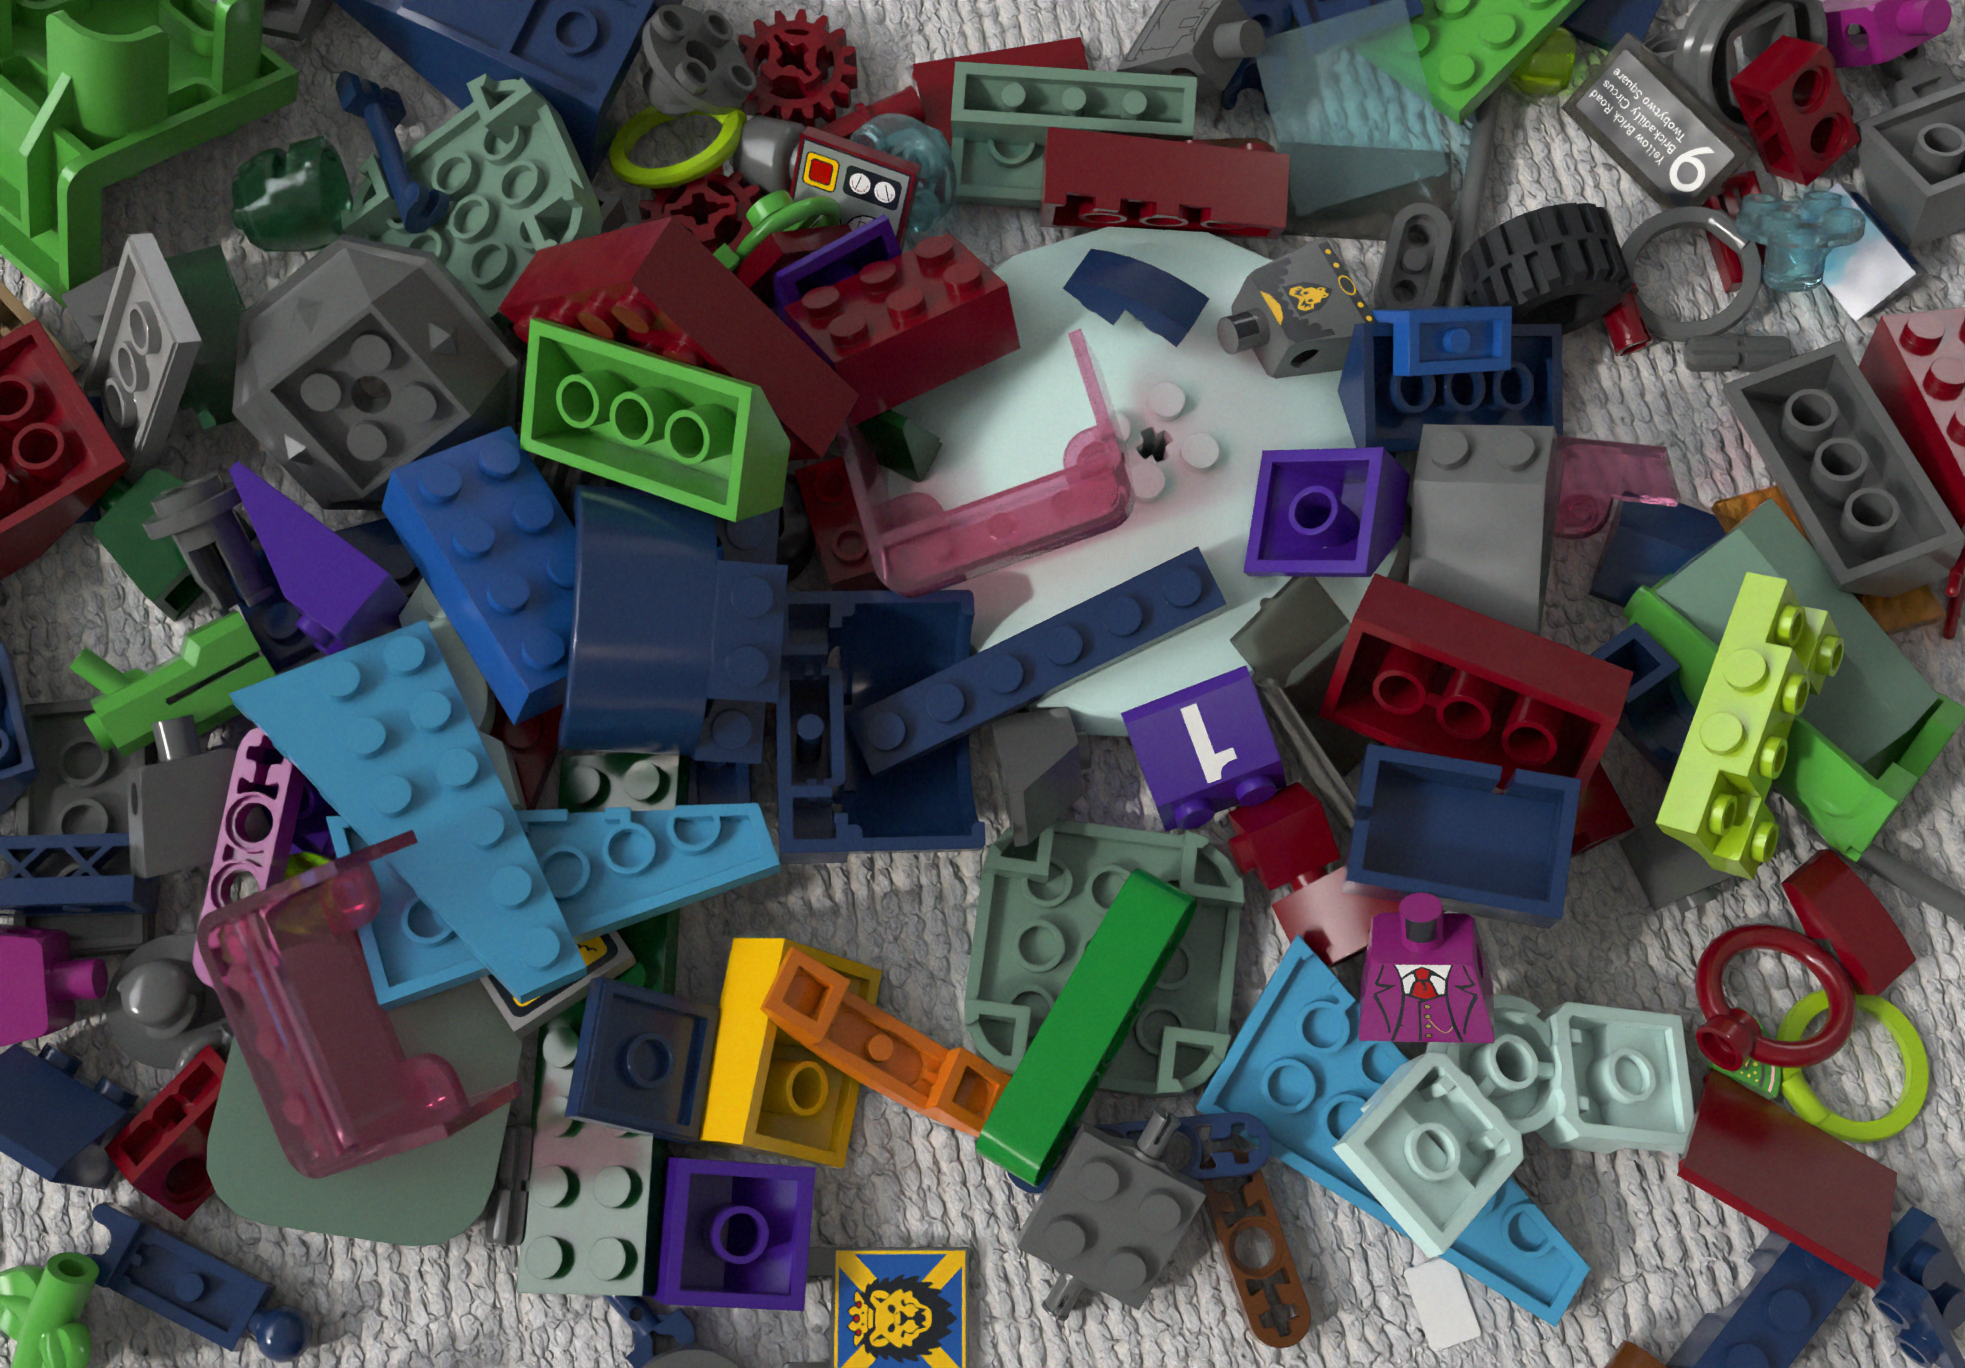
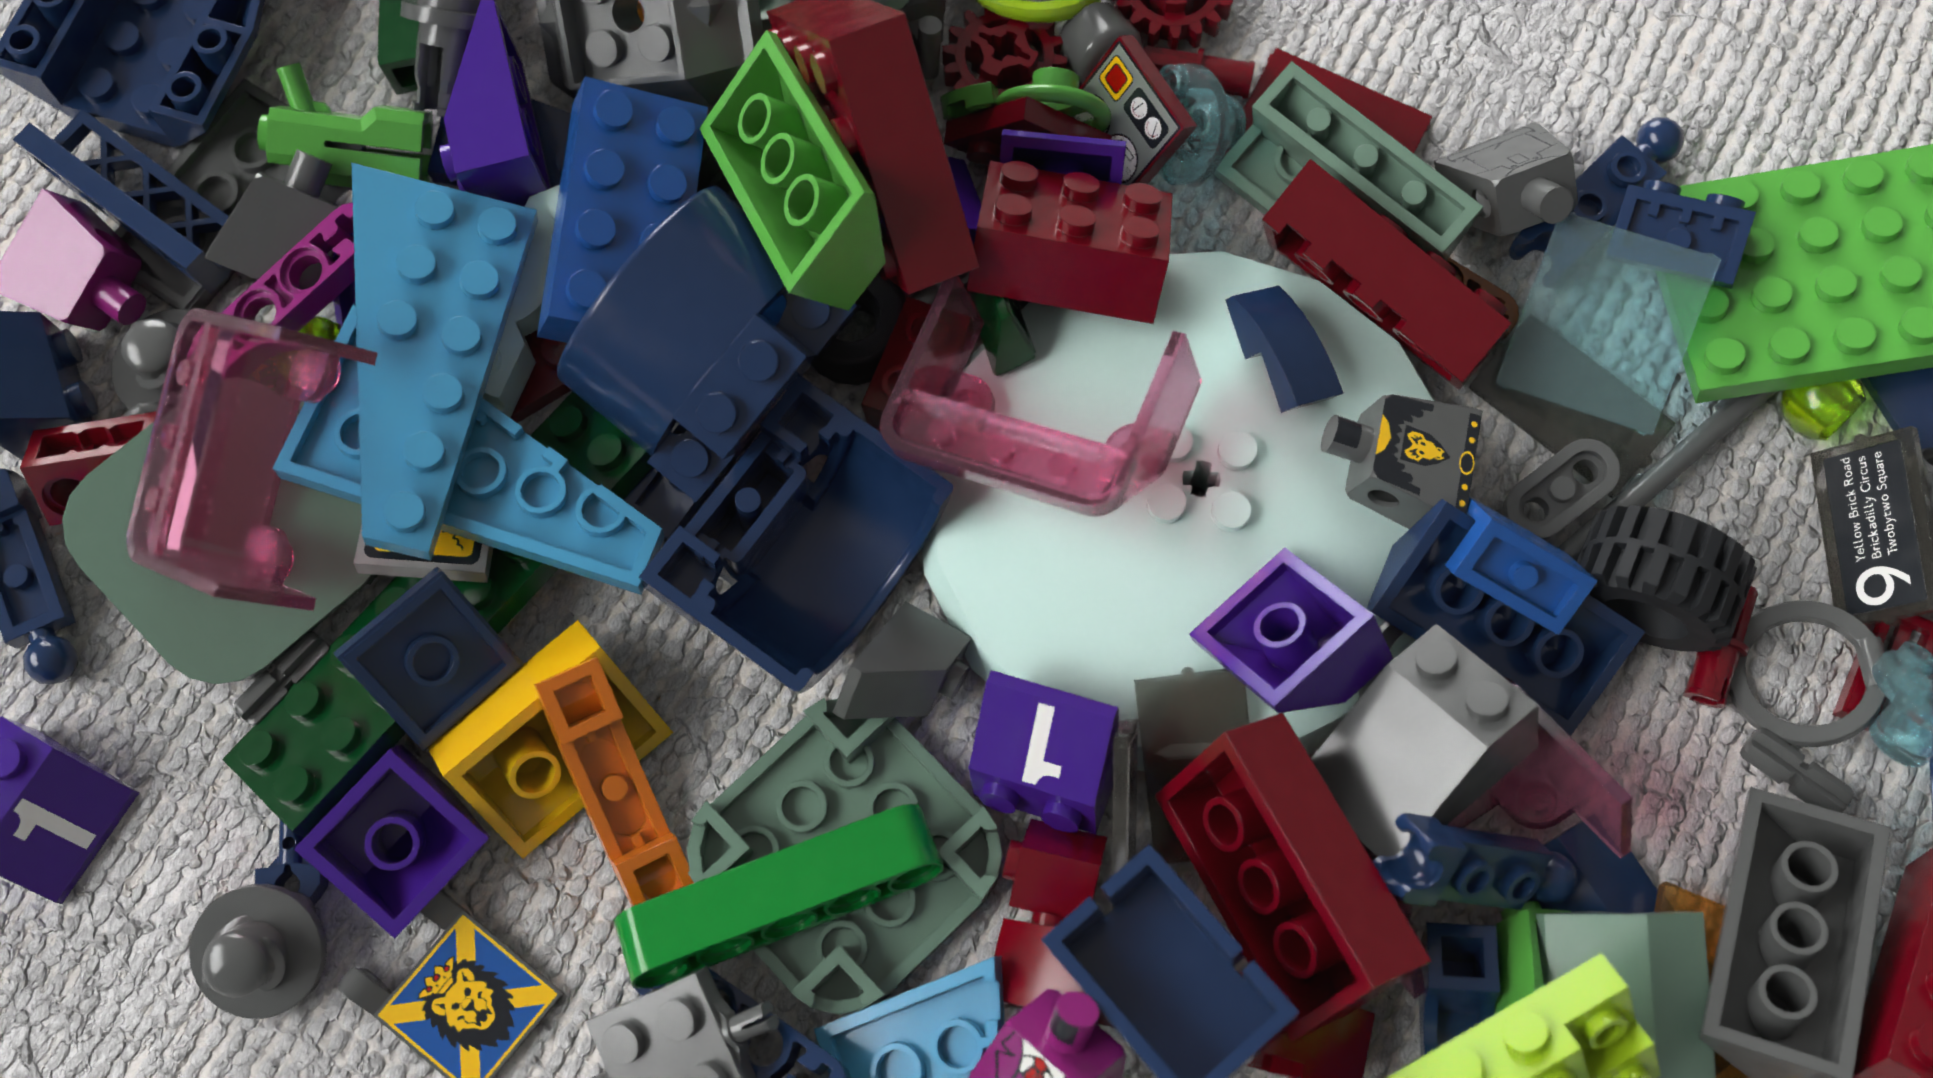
camera: 45 degrees right, 0 degrees up
(1036, 662) = (973, 583): dark blue plate -> none
(1592, 587) = (1473, 867): none -> dark blue plate

